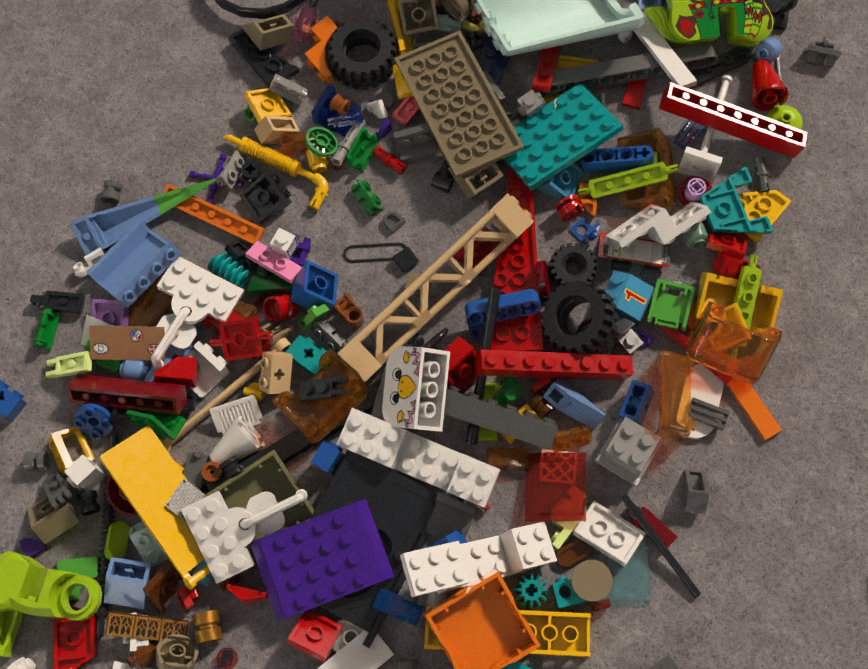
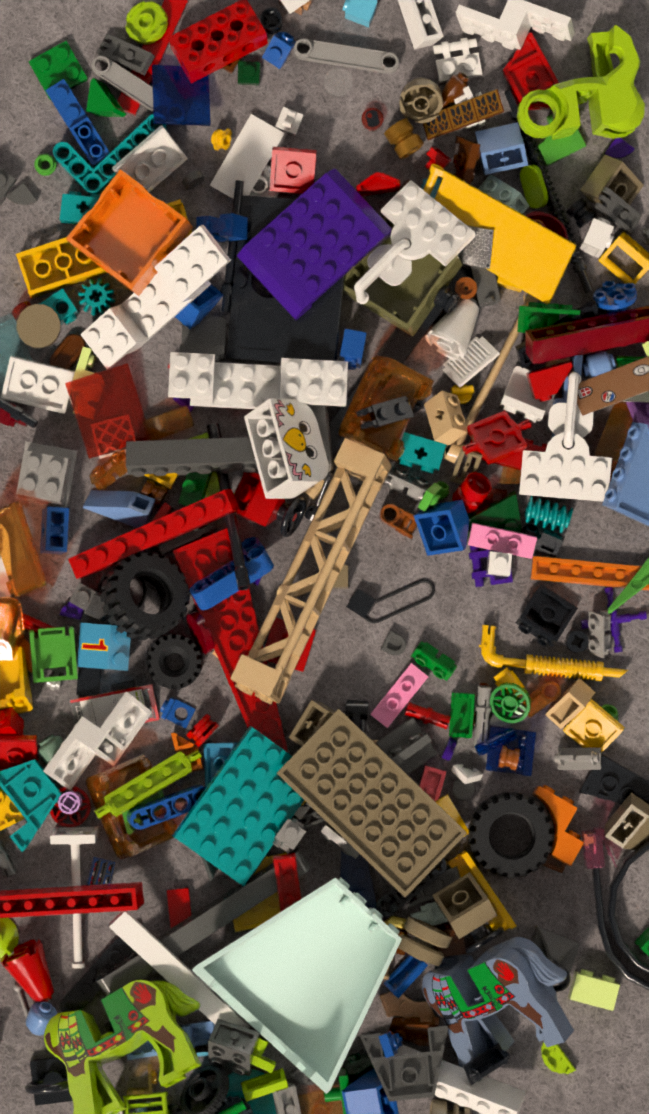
camera: 155 degrees right, 15 degrees up
(404, 182) = (399, 695): none -> bright pink plate

